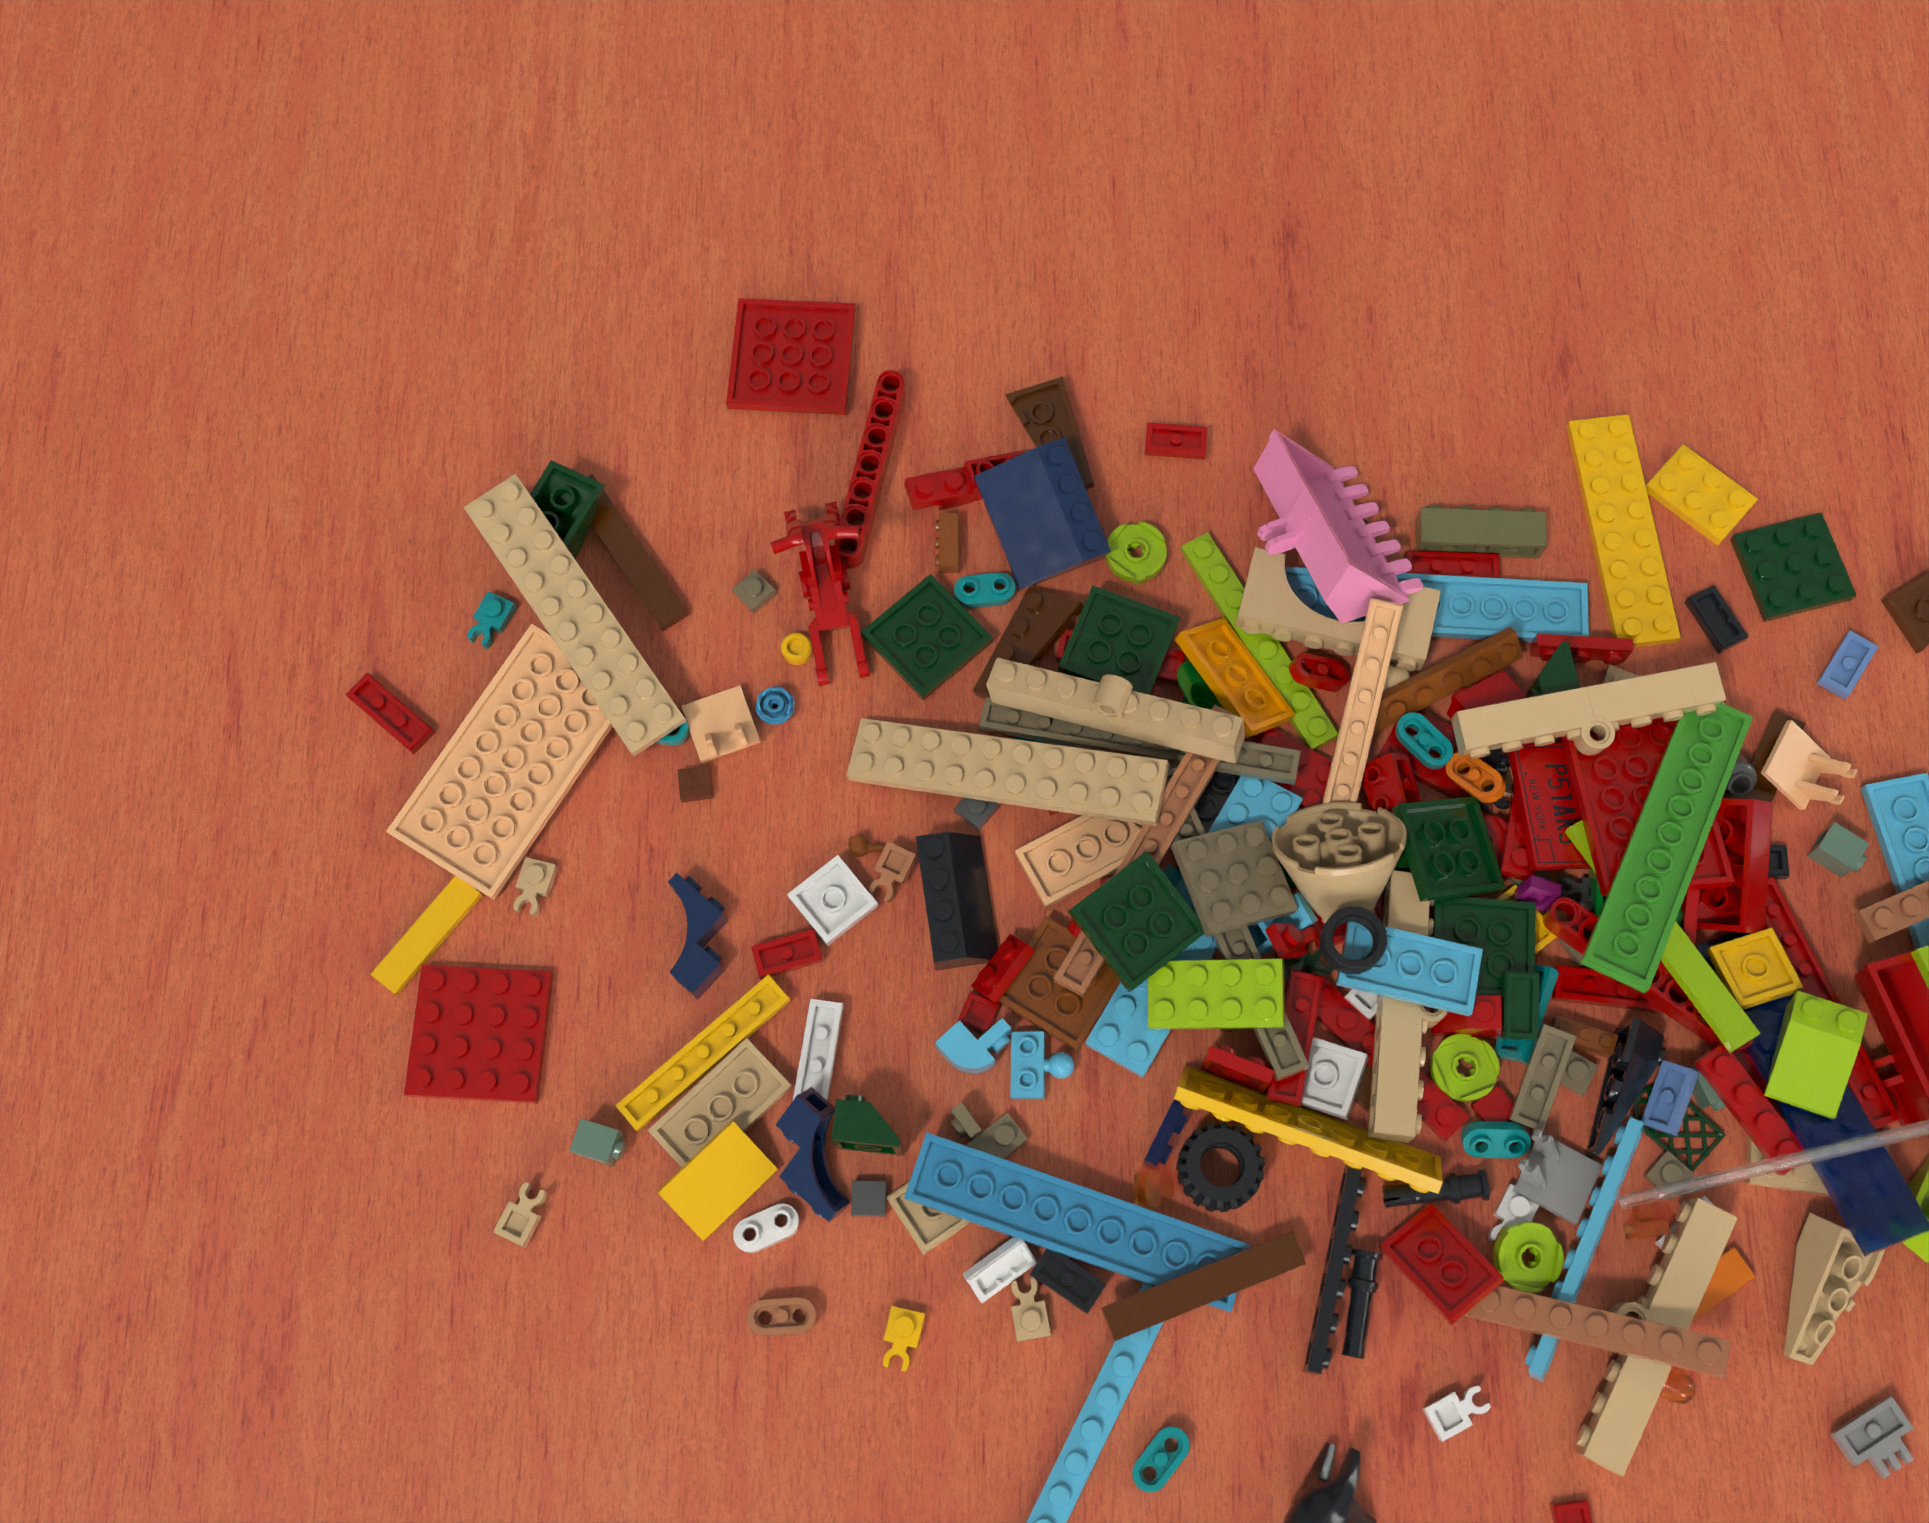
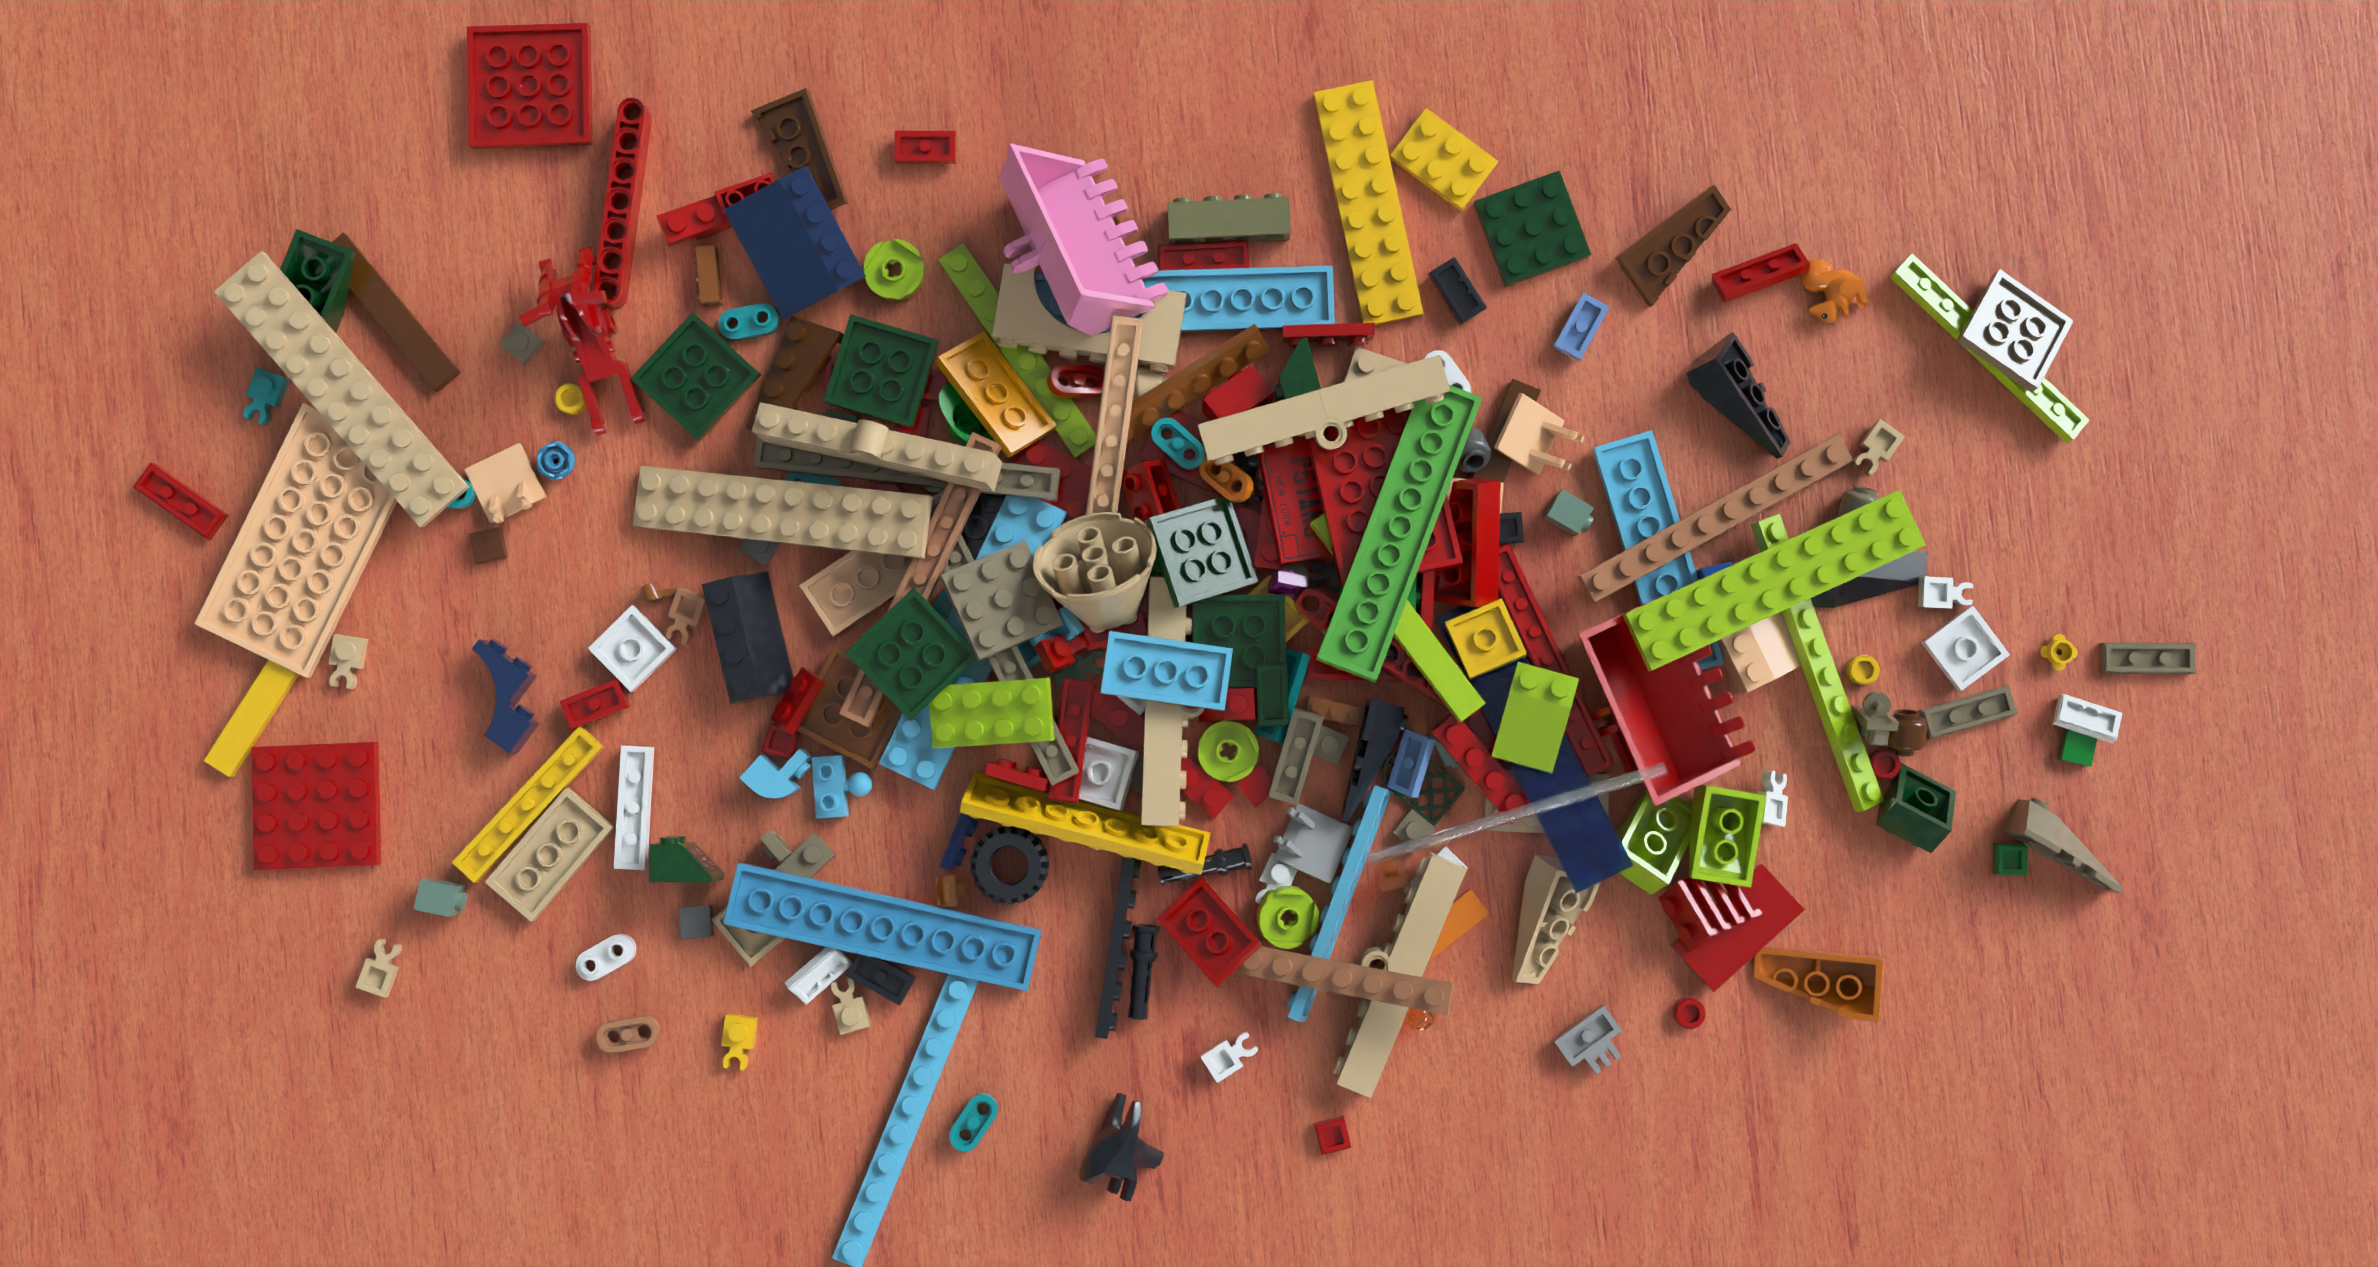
camera: 15 degrees left, 15 degrees up
(717, 1180) = (554, 920): yellow tile -> none
(808, 1172) = (636, 906): dark blue arch -> none
(1203, 1286) = (999, 972): reddish brown tile -> none
(1370, 922) = (1110, 631): black tyre -> none
(1496, 1138) = (1257, 814): teal plate -> none

